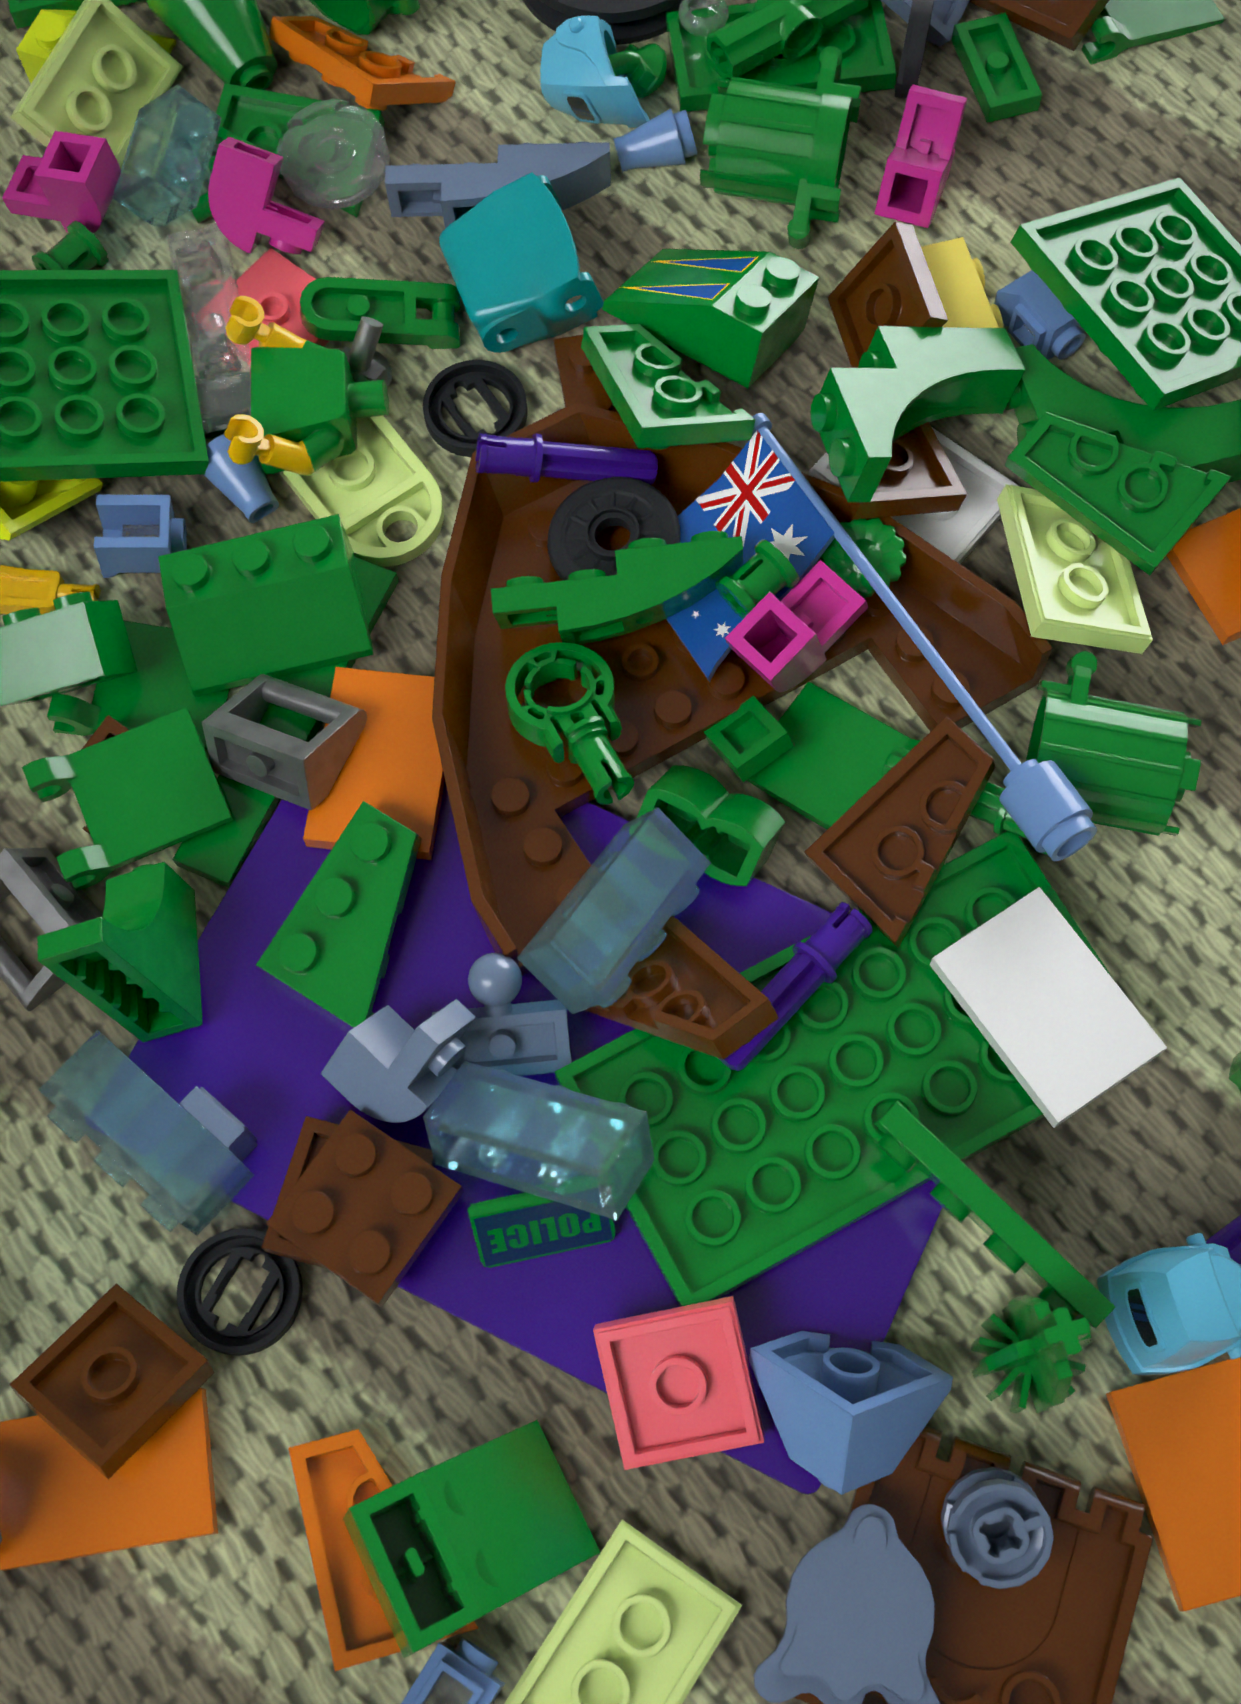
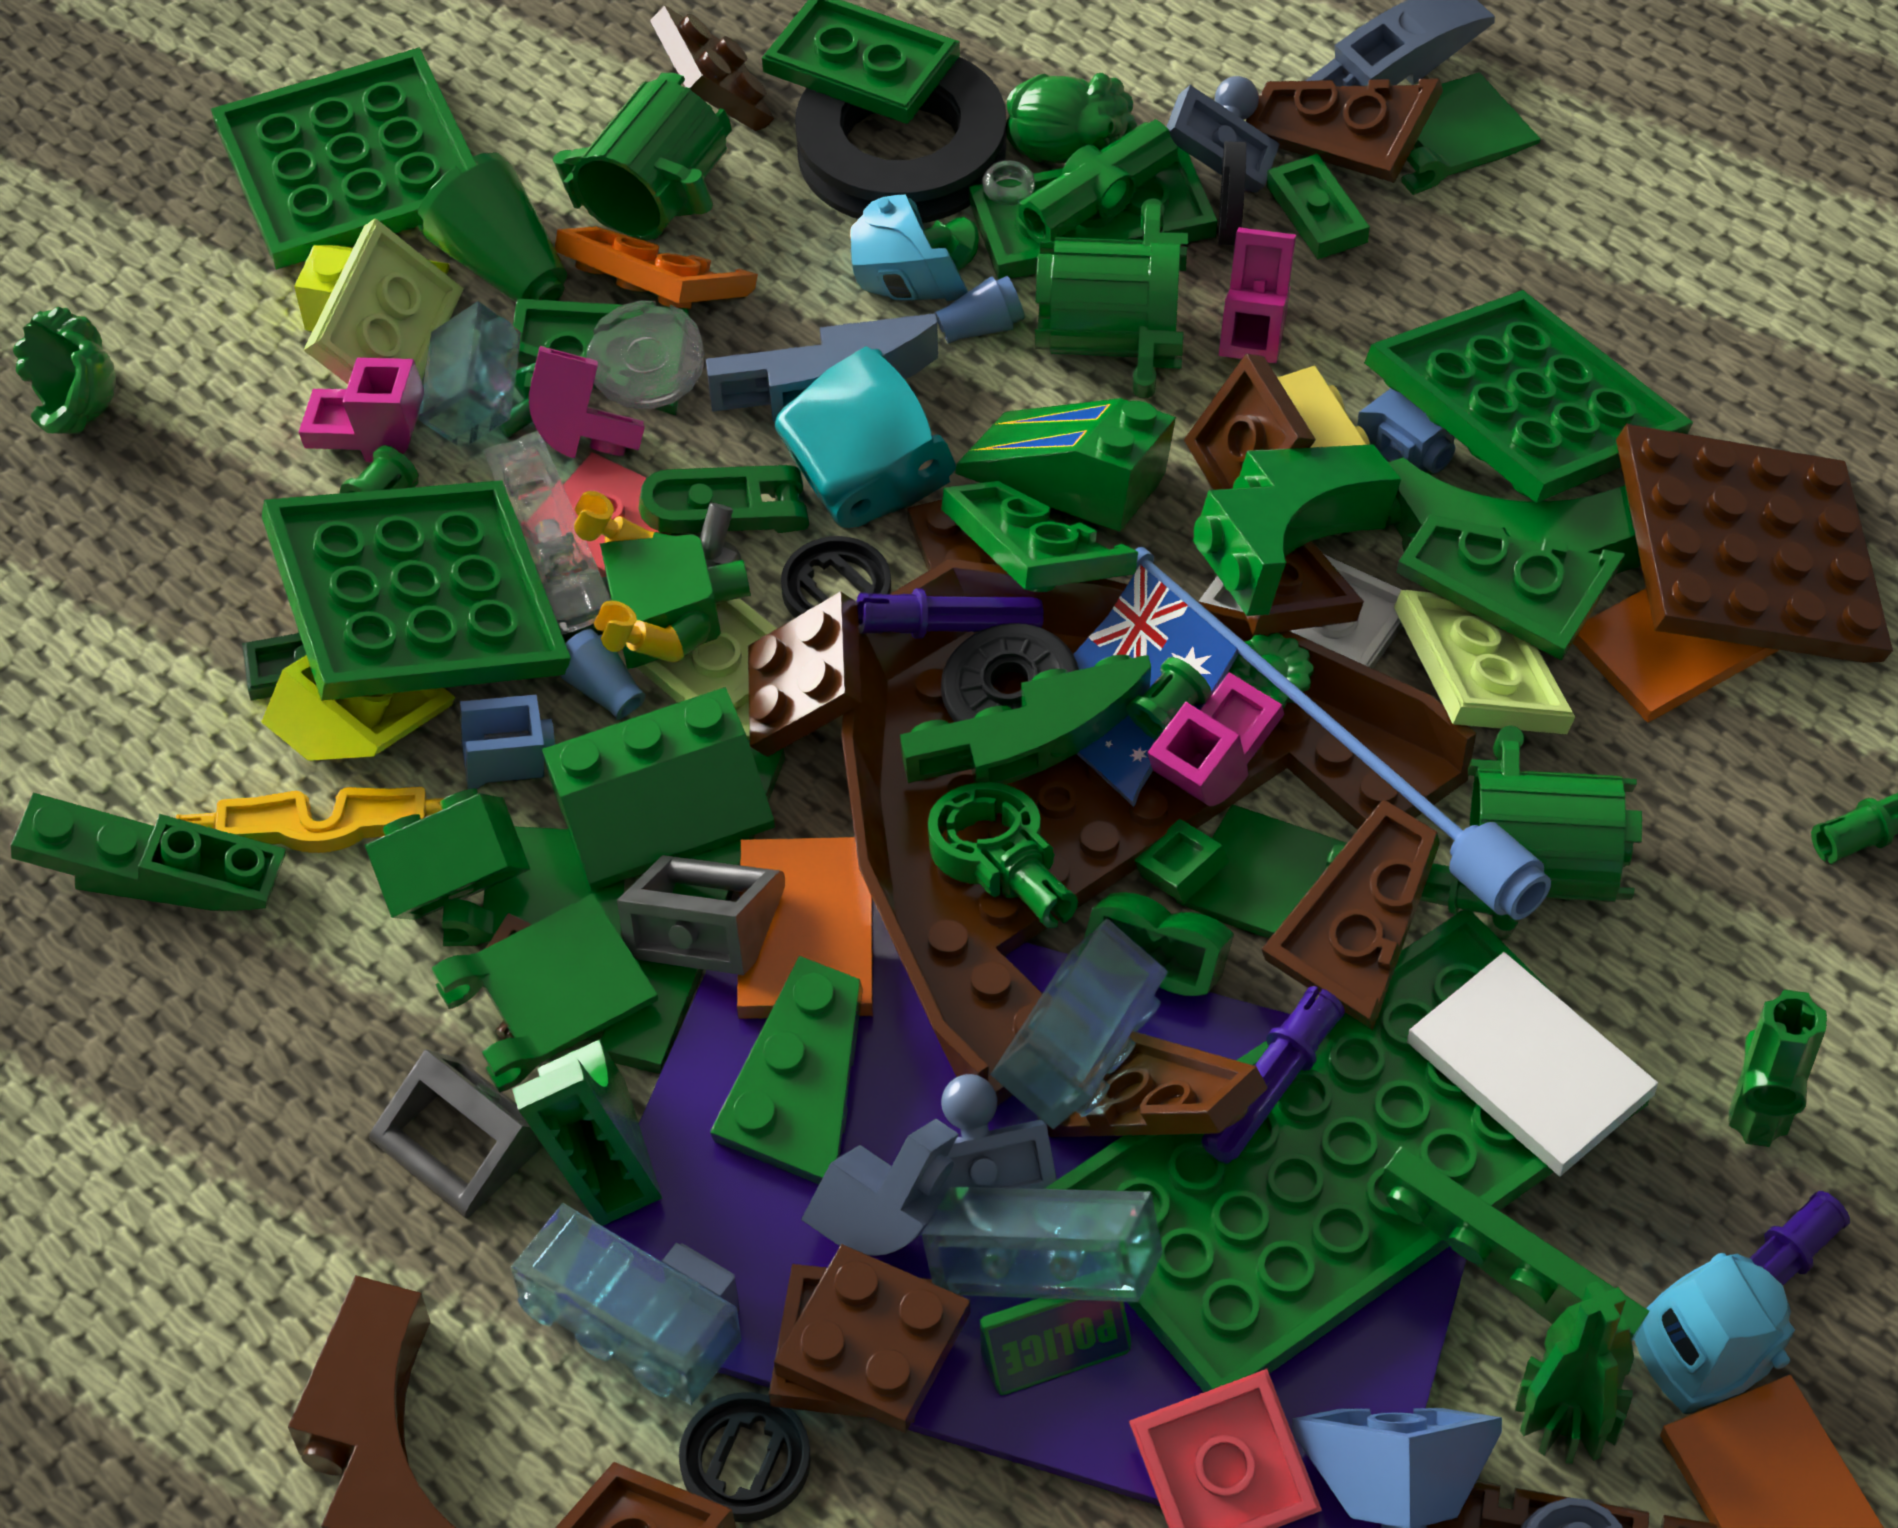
camera: 10 degrees left, 15 degrees down
(420, 506) = (804, 674): none -> reddish brown plate

